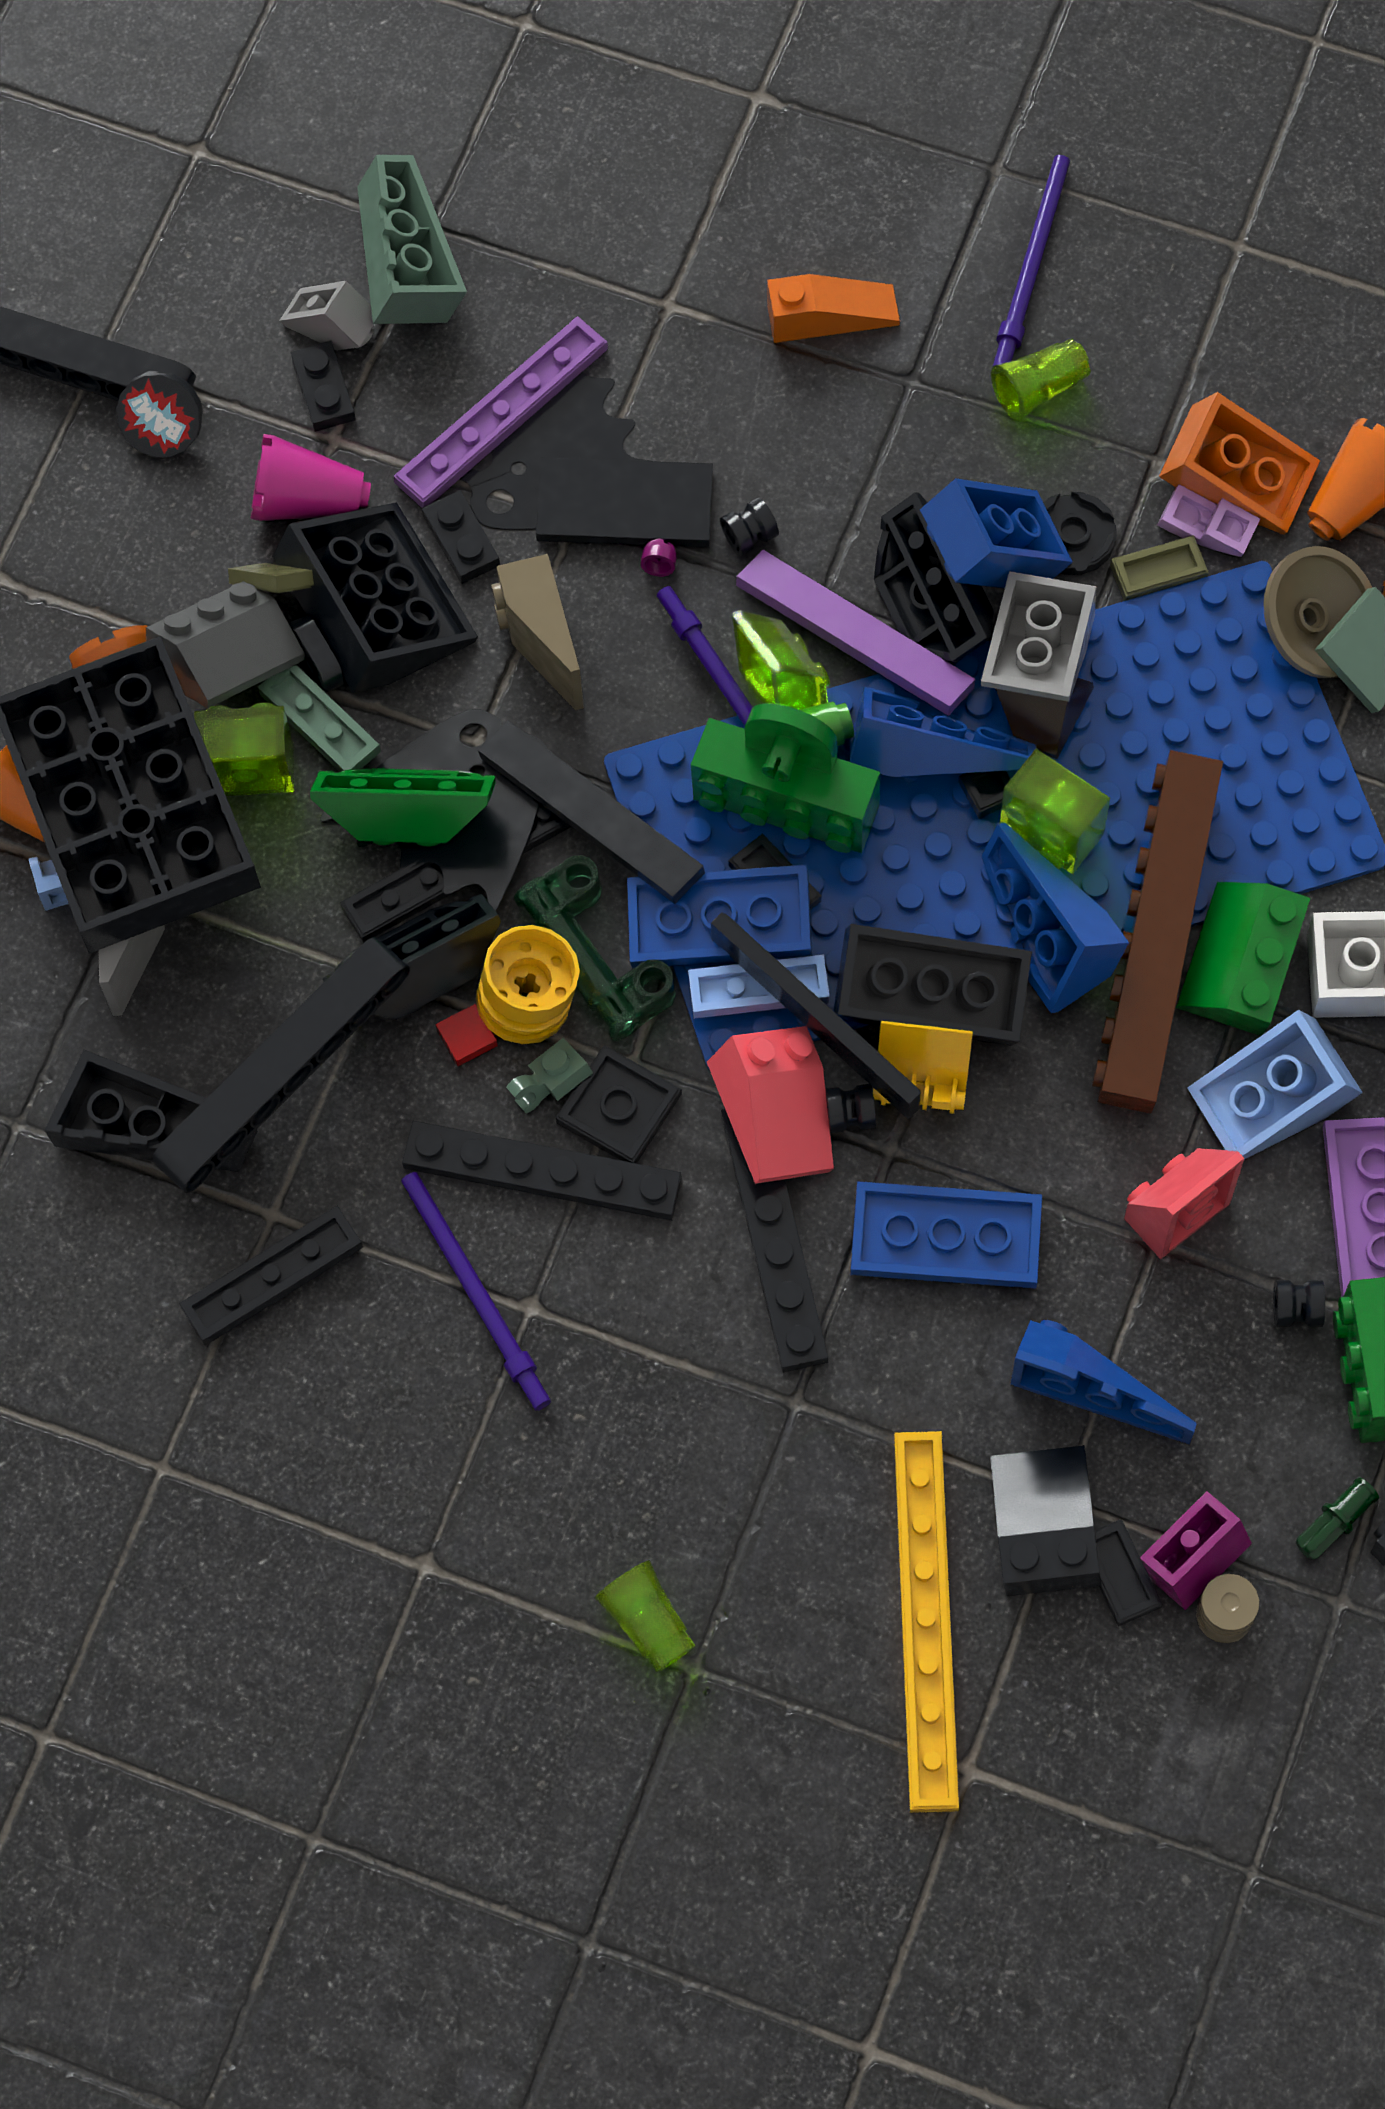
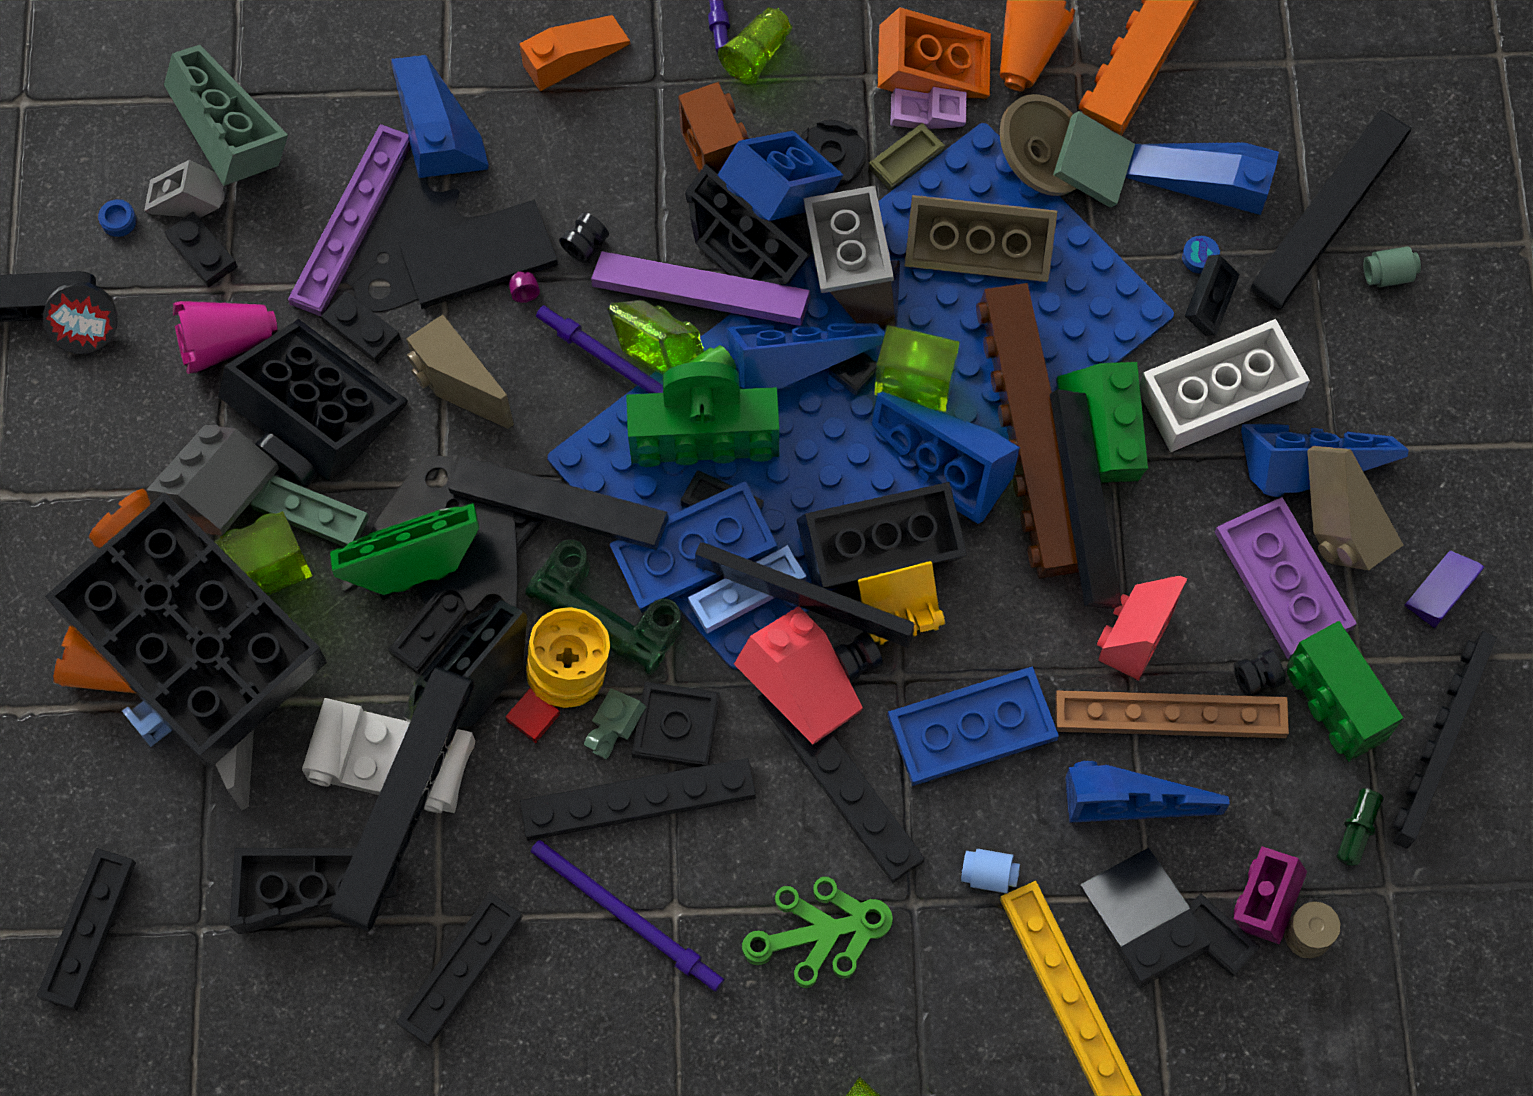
camera: 25 degrees left, 0 degrees up
(247, 318) = (117, 218): none -> blue tile
(259, 989) = (359, 748): none -> white piece
(272, 577) = (226, 413): olive tile -> none
(641, 339) = (437, 126): none -> blue wedge
(681, 1393) = (823, 930): none -> bright green plant
(894, 1400) = (990, 870): none -> light blue brick
(943, 447) = (709, 125): none -> dark orange brick
(1178, 1309) = (1171, 714): none -> medium nougat plate
(1182, 1030) = (1085, 500): none -> black tile
(1196, 692) = (980, 238): none -> dark tan slope
(1275, 1086) = (1168, 516): light blue slope -> none

